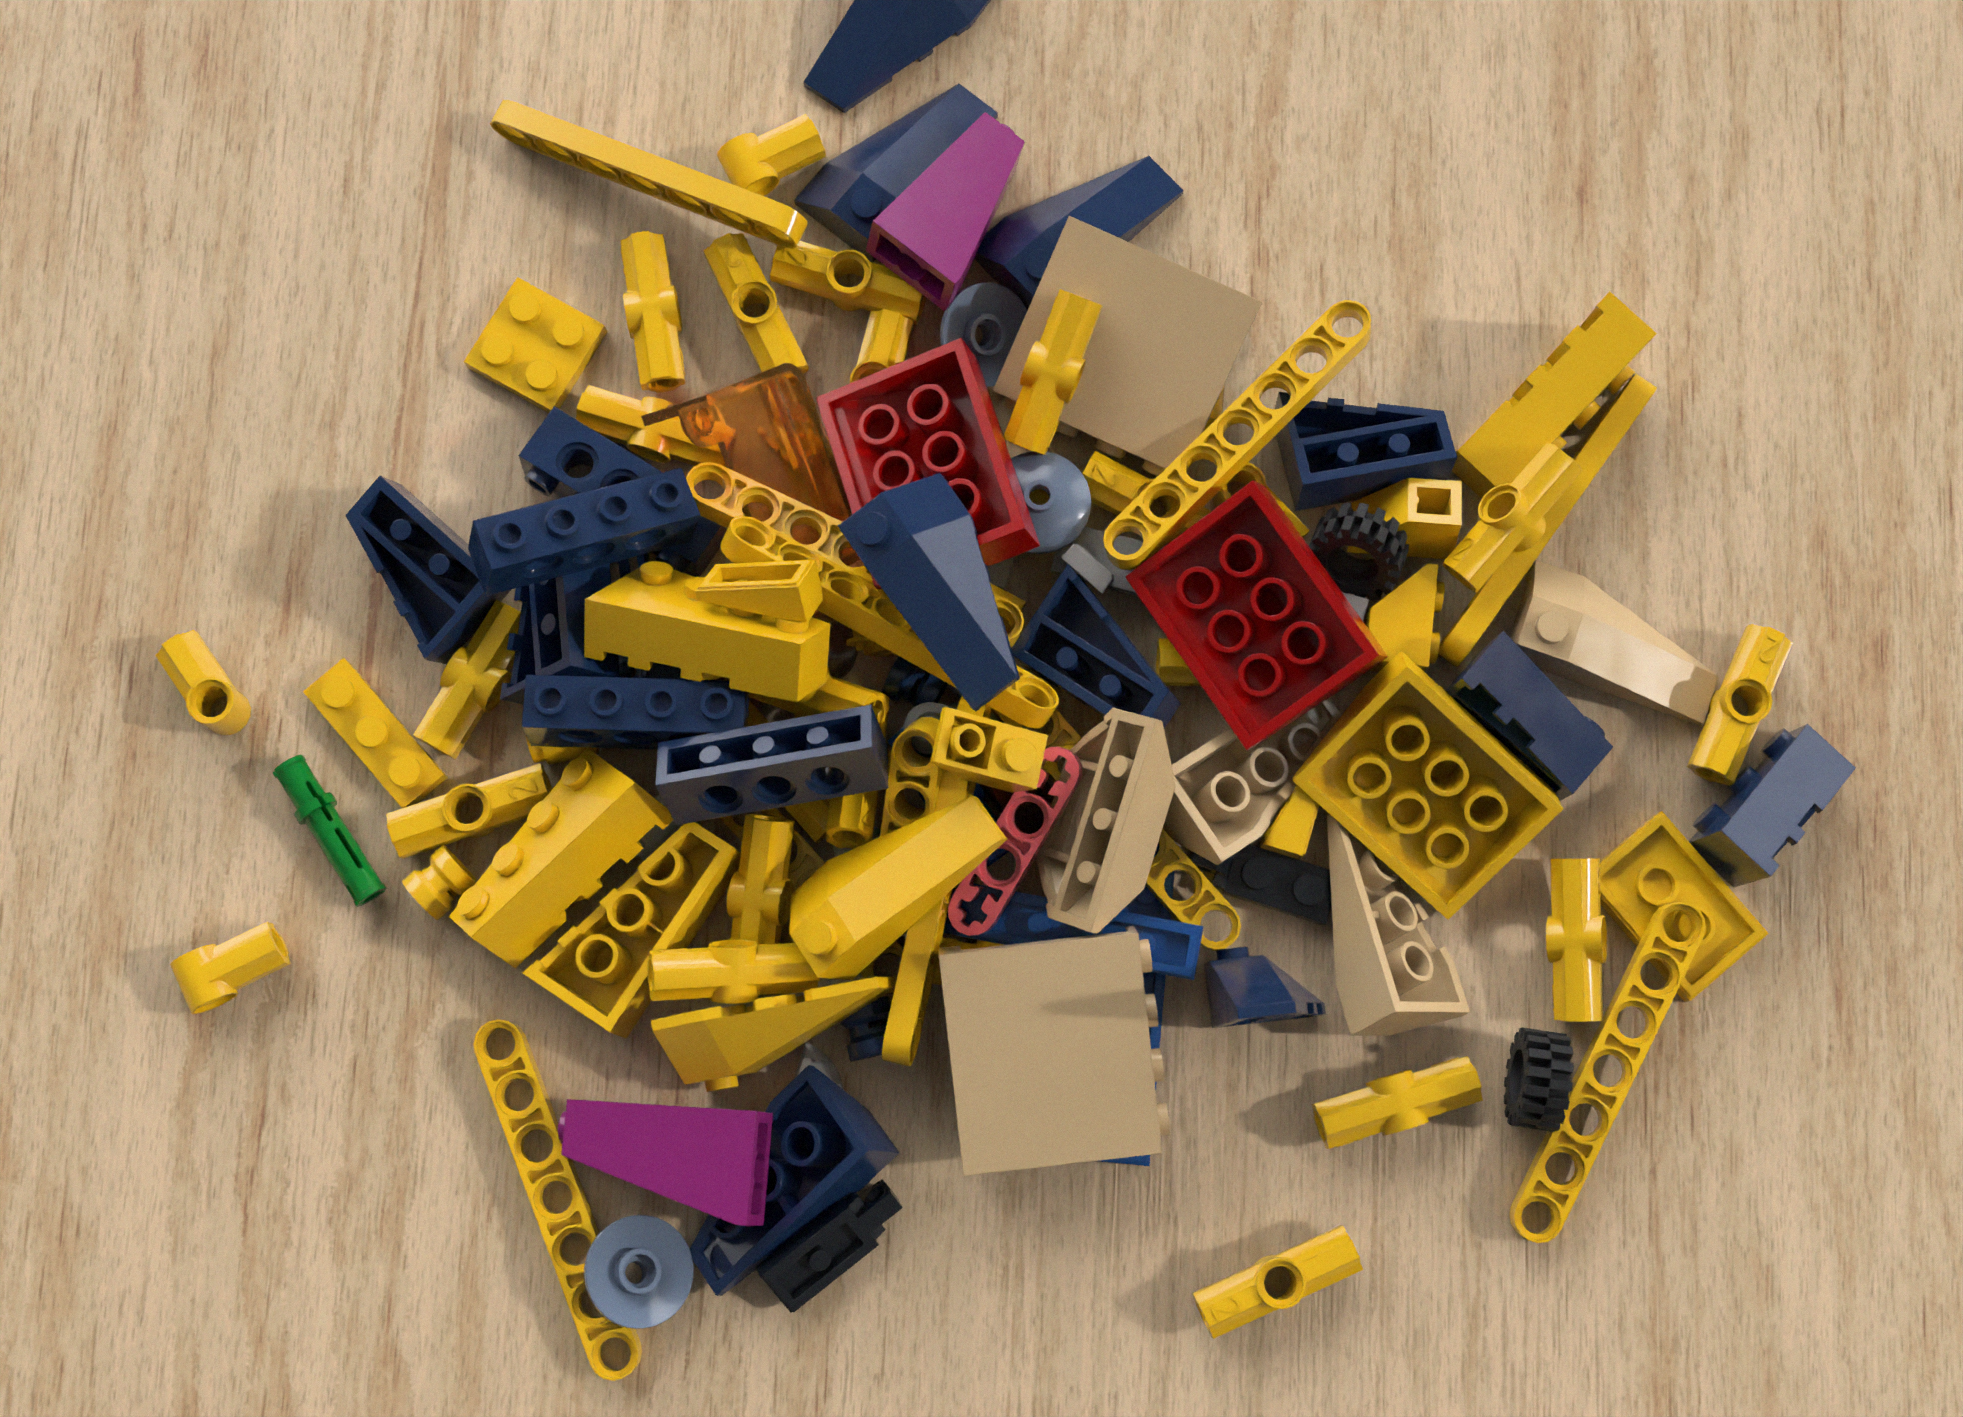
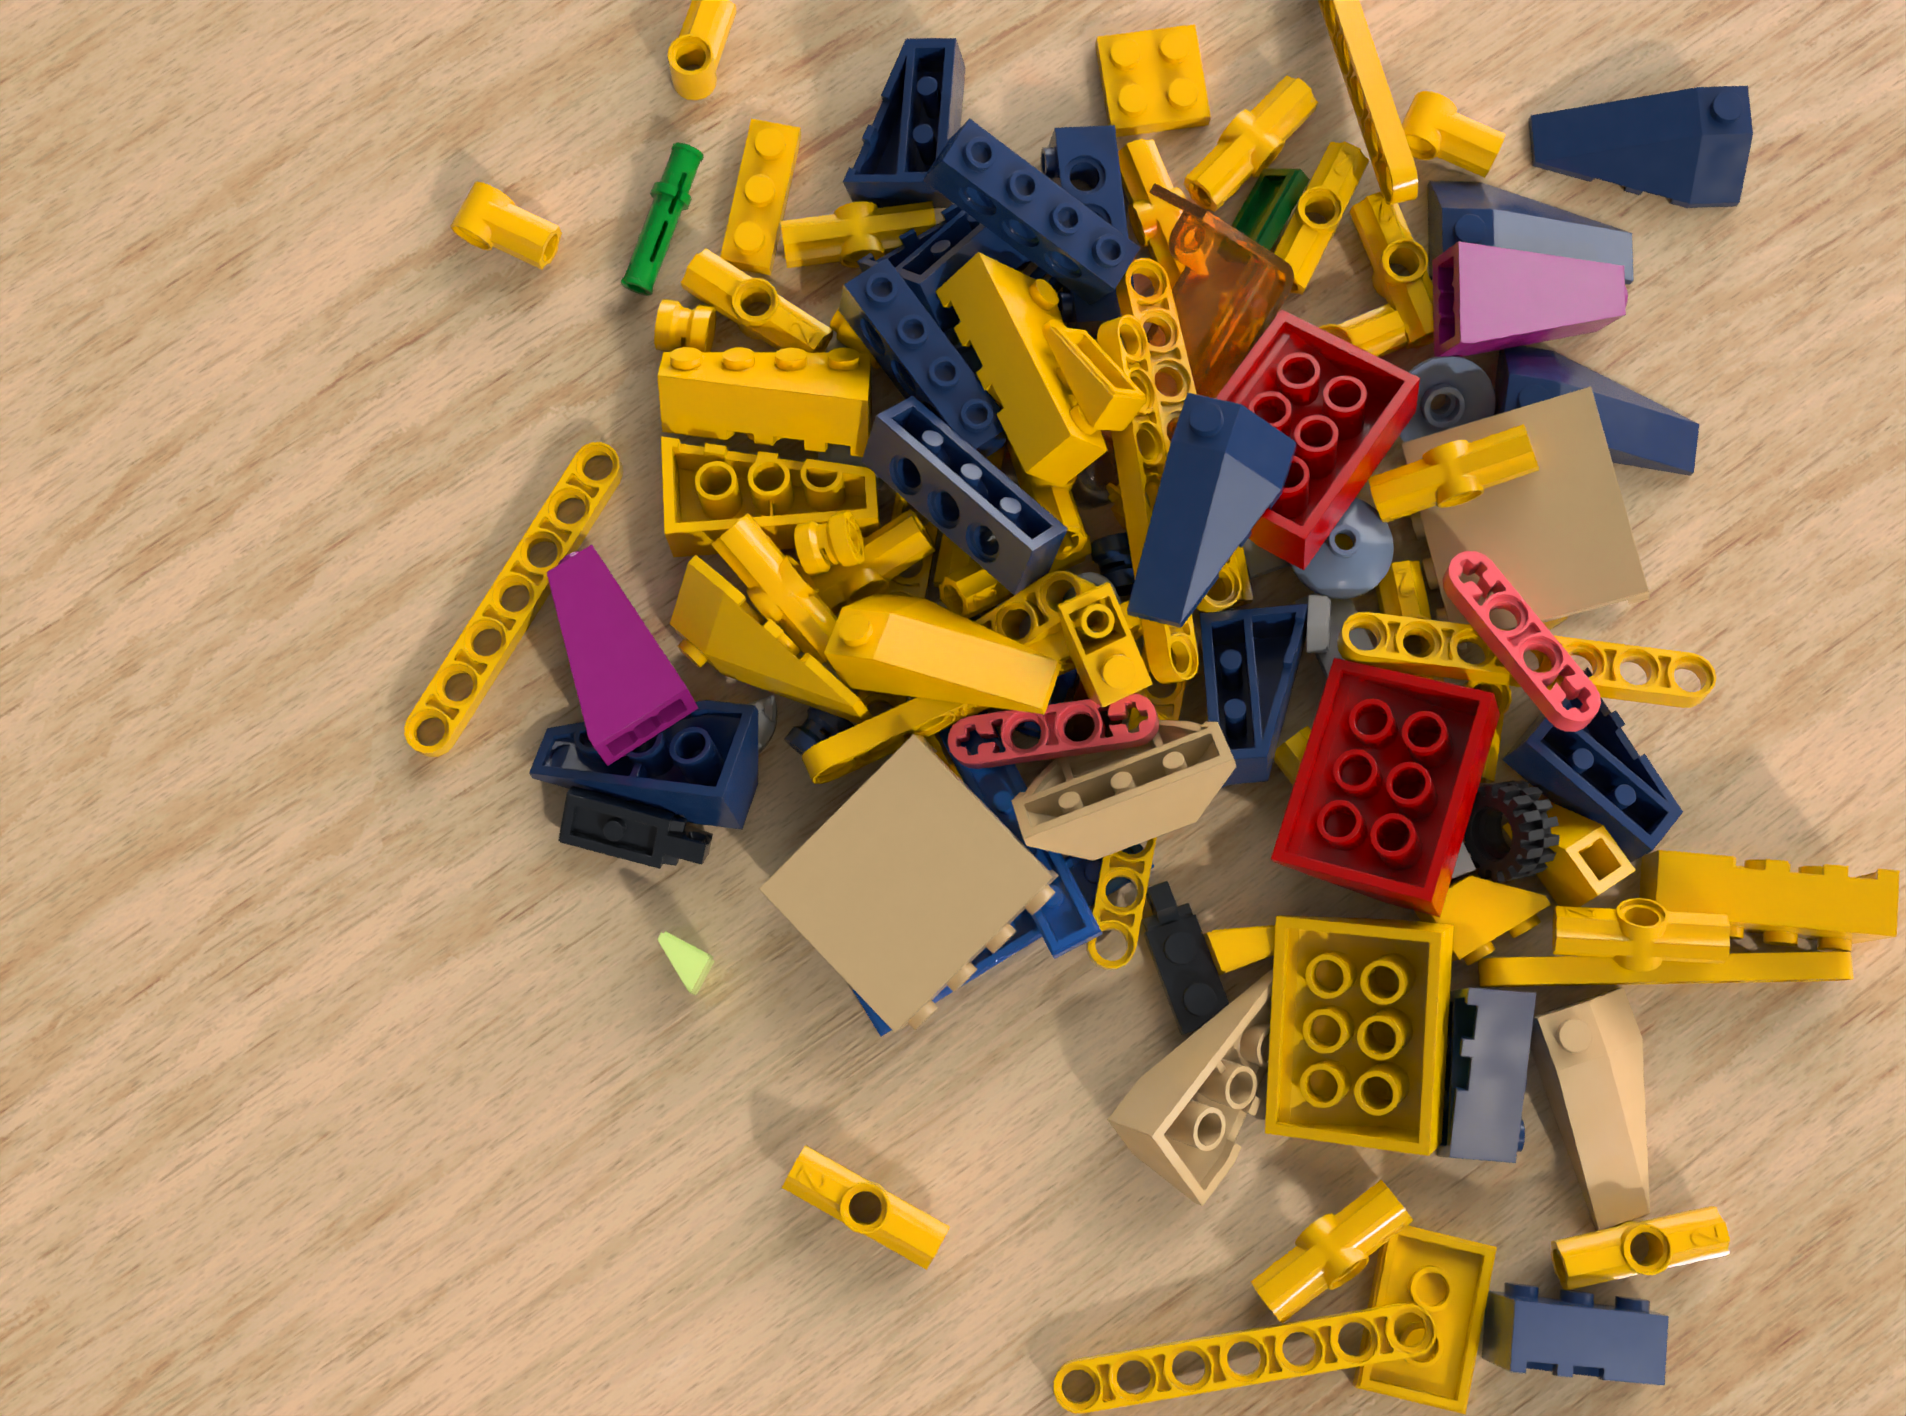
camera: 55 degrees right, 0 degrees up
(664, 1267) = (530, 705): sand blue dish -> none
(717, 340) = (1270, 204): none -> dark green tile
(725, 903) = (829, 543): none -> yellow wheel
(972, 1278) = (688, 961): none -> yellowish green slope
(1224, 418) = (1512, 644): none -> coral beam
(1232, 793) = (1226, 876): tan wedge -> none
(1254, 991) = (1083, 1017): dark blue wedge -> none
(1397, 1102) = (1084, 1200): yellow piece -> none
(1538, 1079) = (1190, 1302): black tyre -> none

